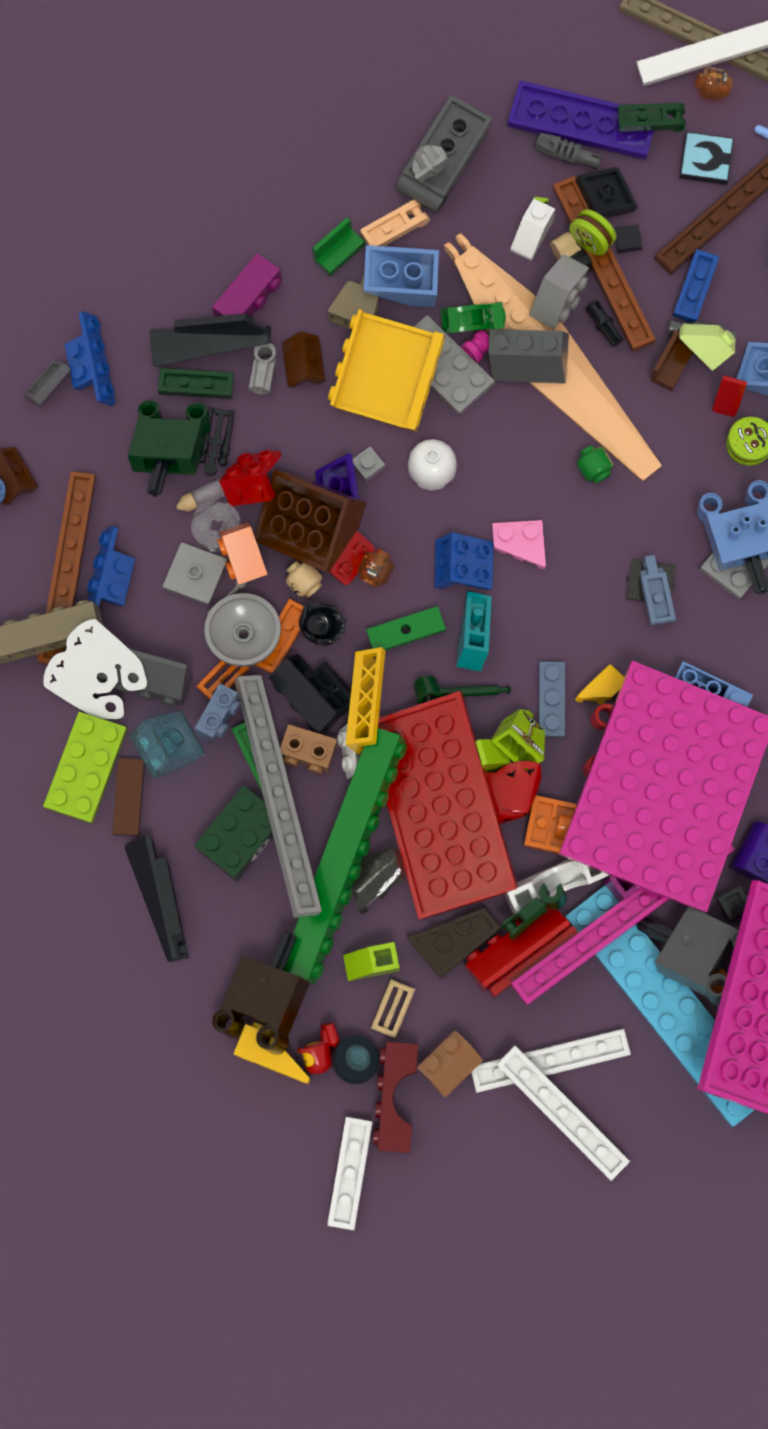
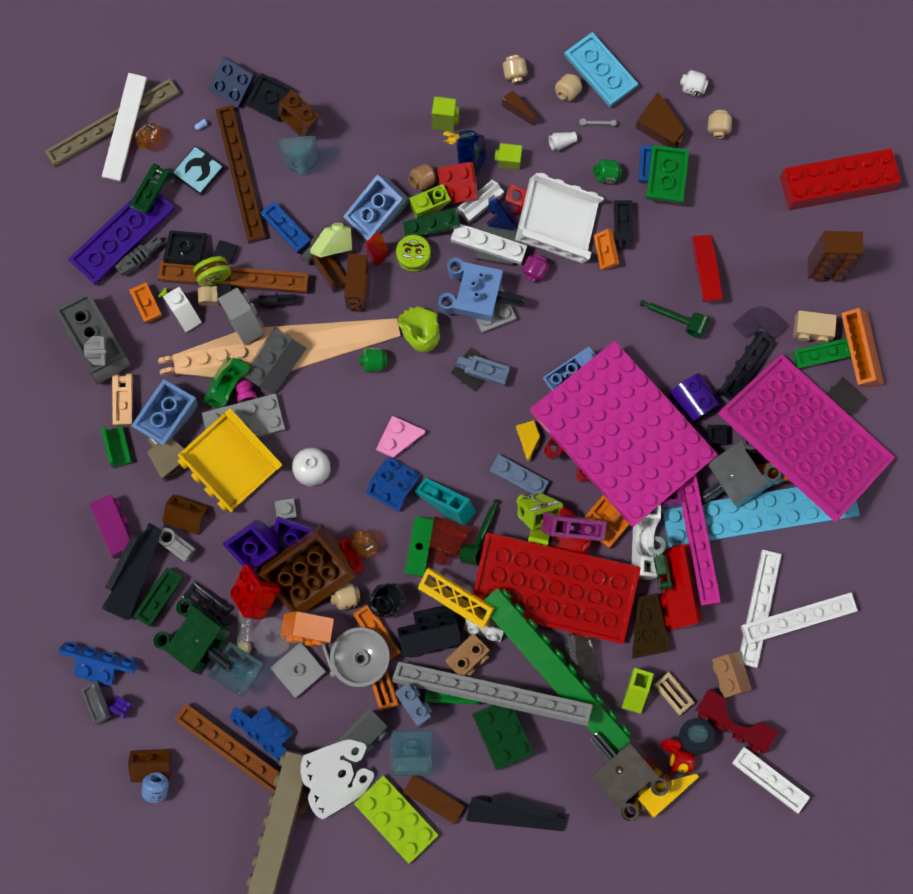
camera: 65 degrees left, 0 degrees up
(56, 410) = (121, 706): none -> dark purple wheel
(156, 514) = (243, 674): none -> clear light blue brick
(306, 446) = (252, 544): none -> dark purple brick
(431, 655) = (447, 539): none -> clear red torso
(518, 188) = (145, 303): none -> orange plate
(520, 785) = (573, 526): none -> magenta slope
(662, 494) = (420, 328): none -> lime piece
(675, 395) = (356, 282): none -> reddish brown window

